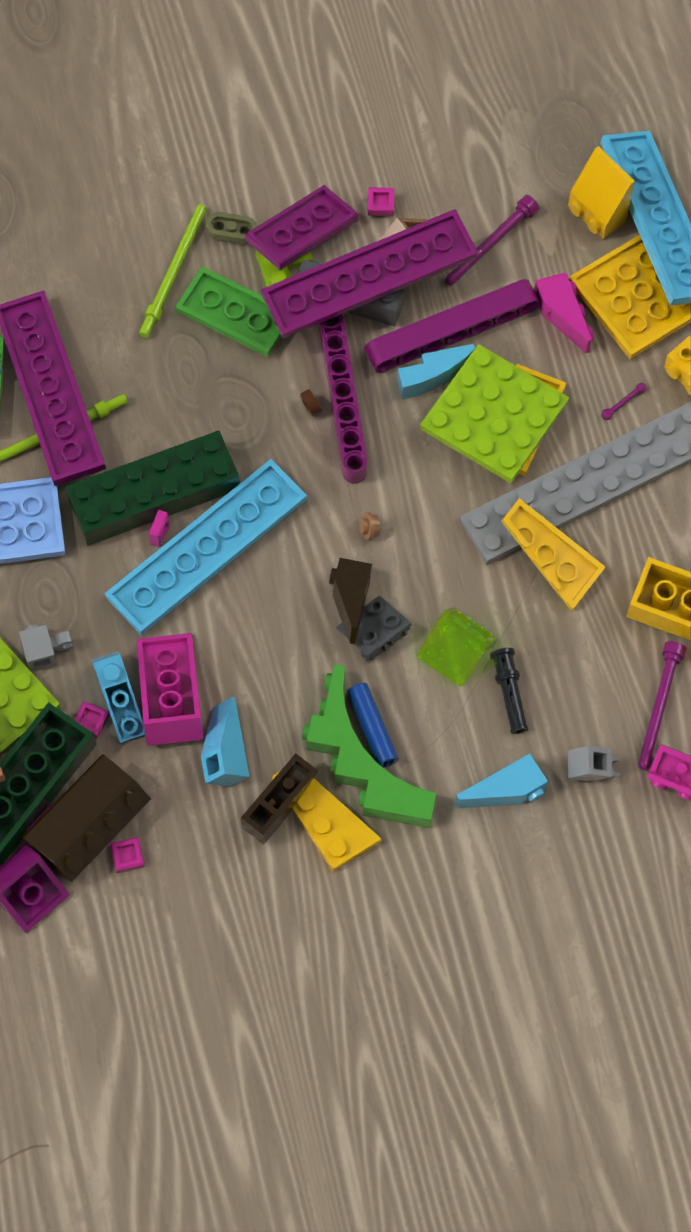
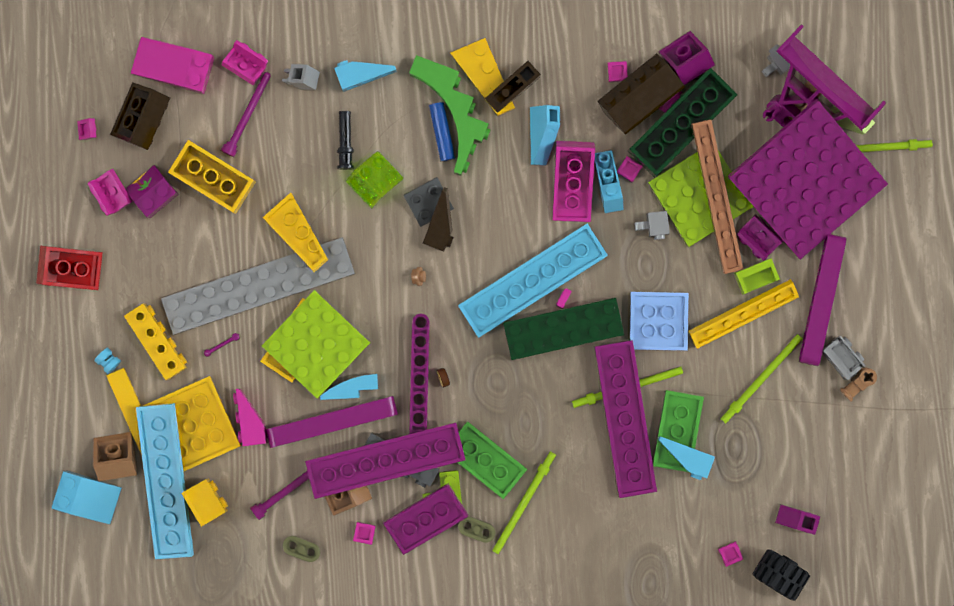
camera: 170 degrees left, 20 degrees up
(460, 171) = (301, 548): none -> olive plate

